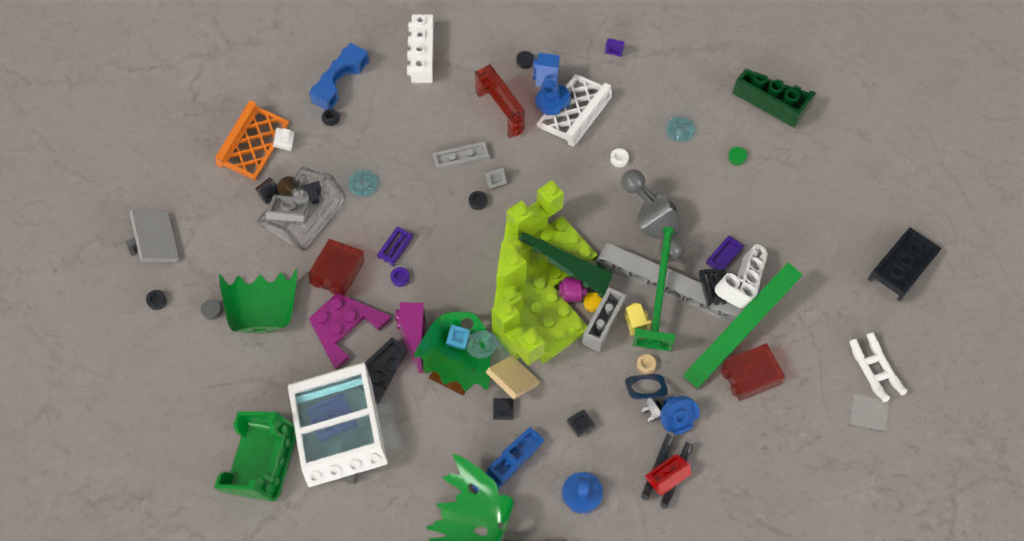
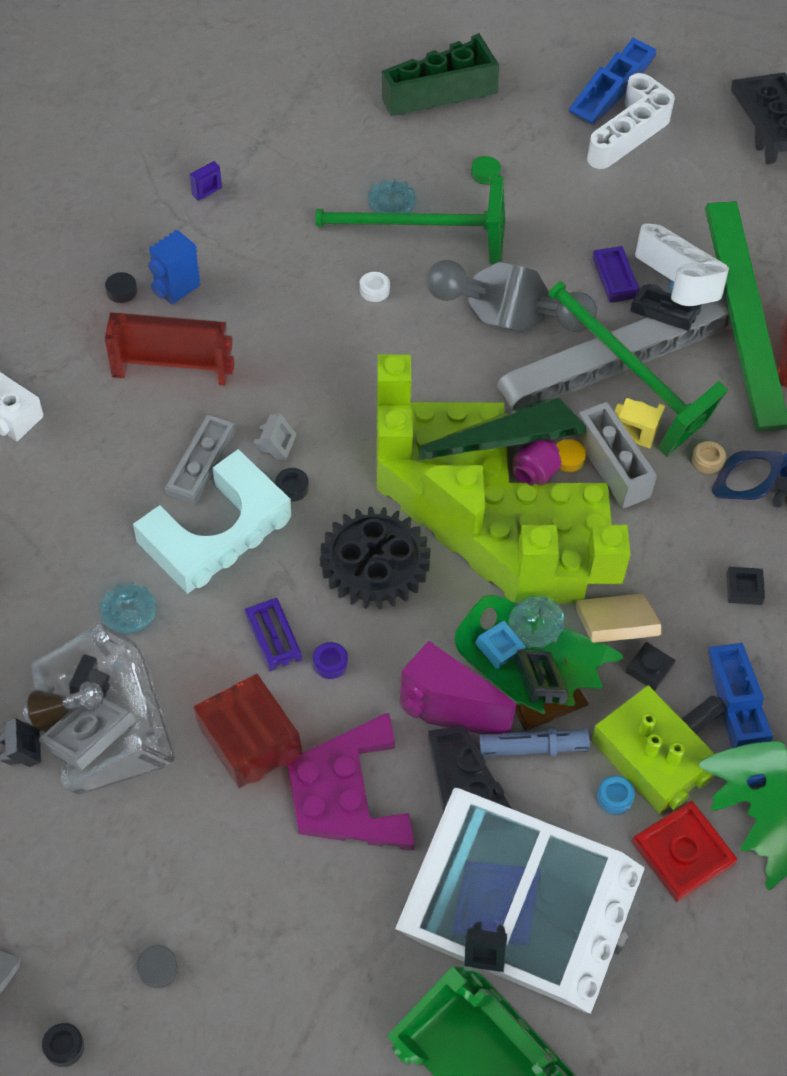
camera: 55 degrees left, 5 degrees down
(248, 303) = (197, 881): green piece -> none
(297, 421) = (485, 948): none -> black tile
(417, 480) = (684, 850): none -> red tile
(424, 434) = (616, 795): none -> dark azure tile
(427, 390) = (540, 742): none -> sand blue pin
(440, 369) = (534, 676): none -> black tile
(449, 197) = (196, 558): none -> light aqua arch
(459, 434) = (658, 747): none -> lime piece
(465, 243) = (353, 541): none -> black gear
(552, 98) = (218, 293): blue tile -> none
(588, 114) = (275, 267): white fence -> none
(696, 179) = (492, 220): none -> green tile
(801, 193) = (647, 112): none -> white beam
(853, 174) = (611, 82): none -> blue slope

